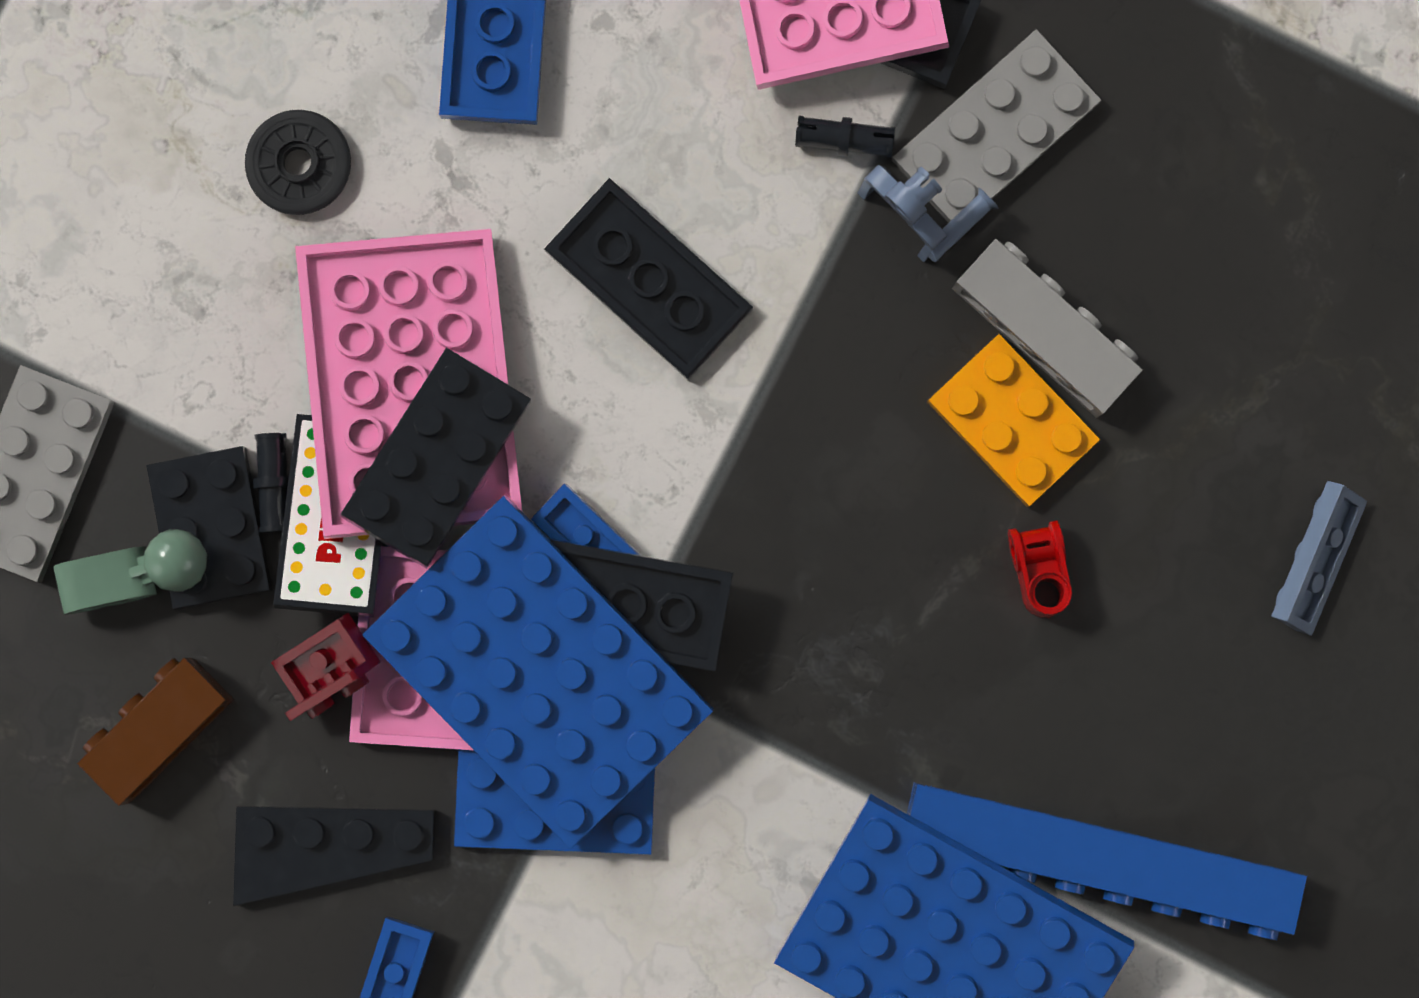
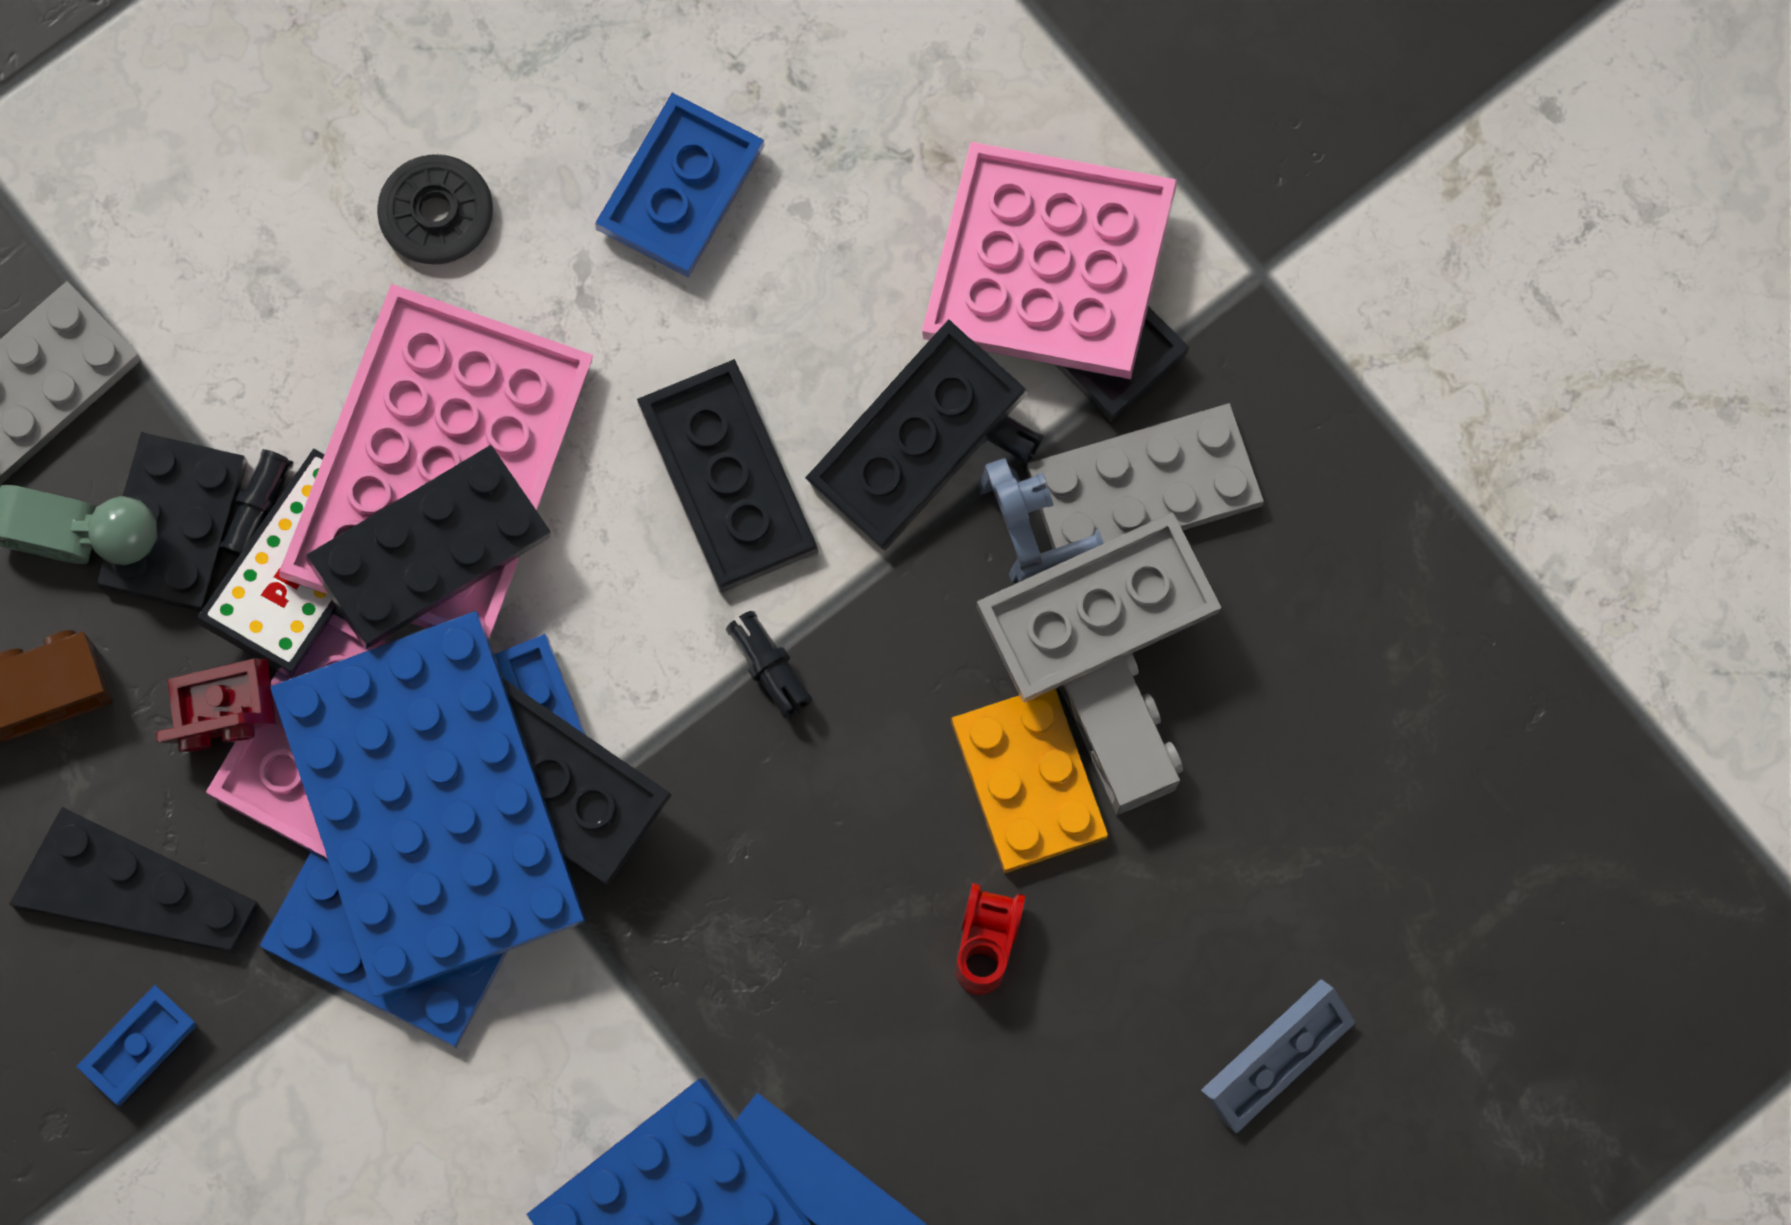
camera: 20 degrees right, 10 degrees down
(758, 423) = (769, 664): none -> black pin
(792, 174) = (917, 434): none -> black tile
(1013, 256) = (1098, 607): none -> light grey plate

